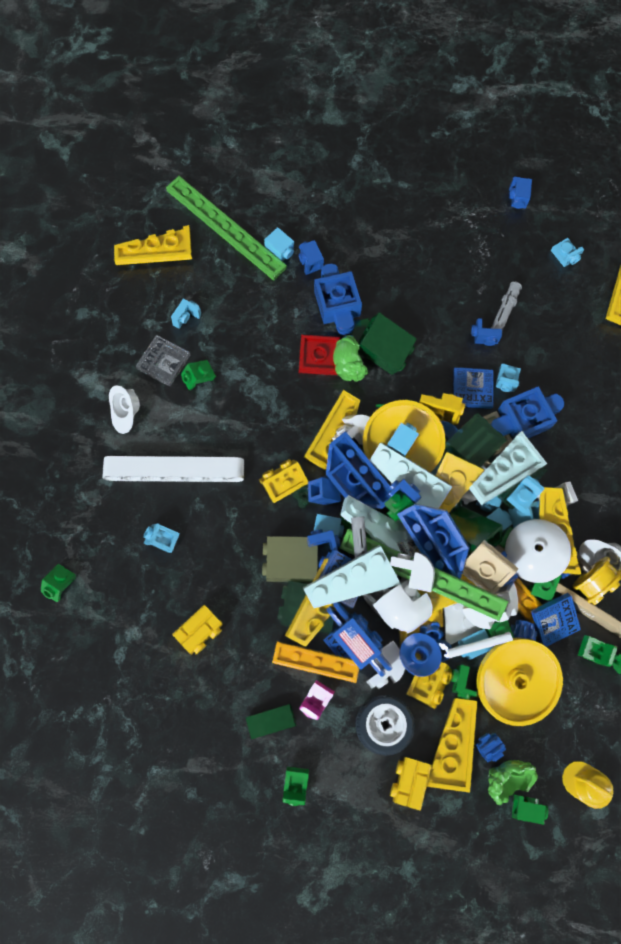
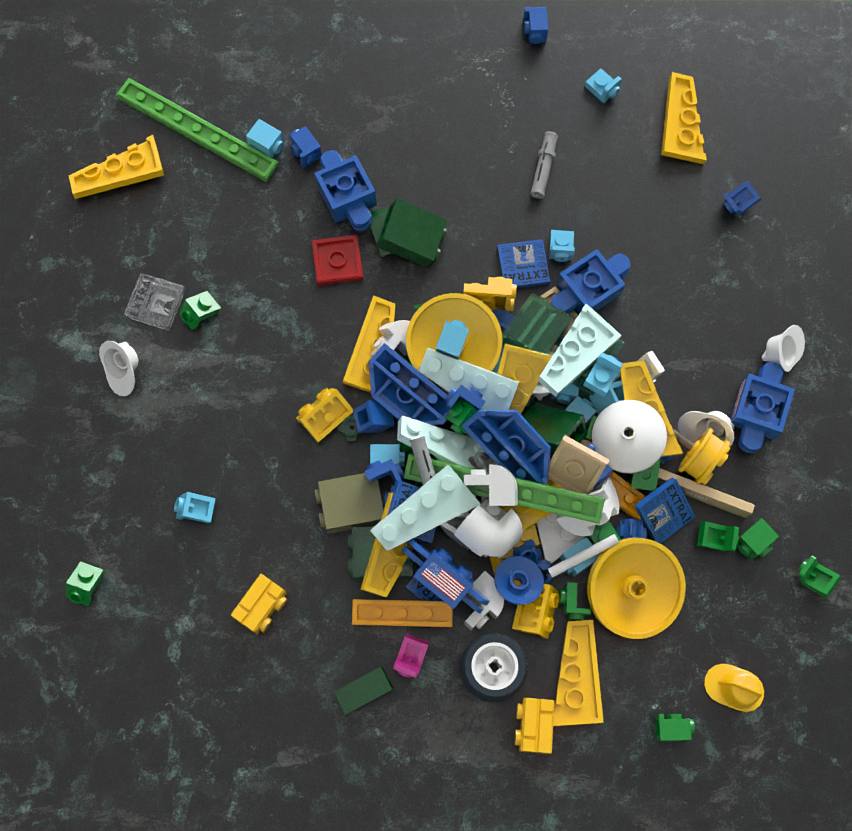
camera: 10 degrees left, 0 degrees up
(173, 469) = (192, 425): white beam -> none
(183, 311) = (167, 240): medium azure bracket -> none
(295, 786) = (405, 756): green bracket -> none
(347, 361) = (371, 260): bright green hair -> none
(485, 336) = (526, 201): blue bracket -> none
(491, 747) = (617, 667): blue gear -> none
(510, 777) = (645, 697): bright green hair -> none

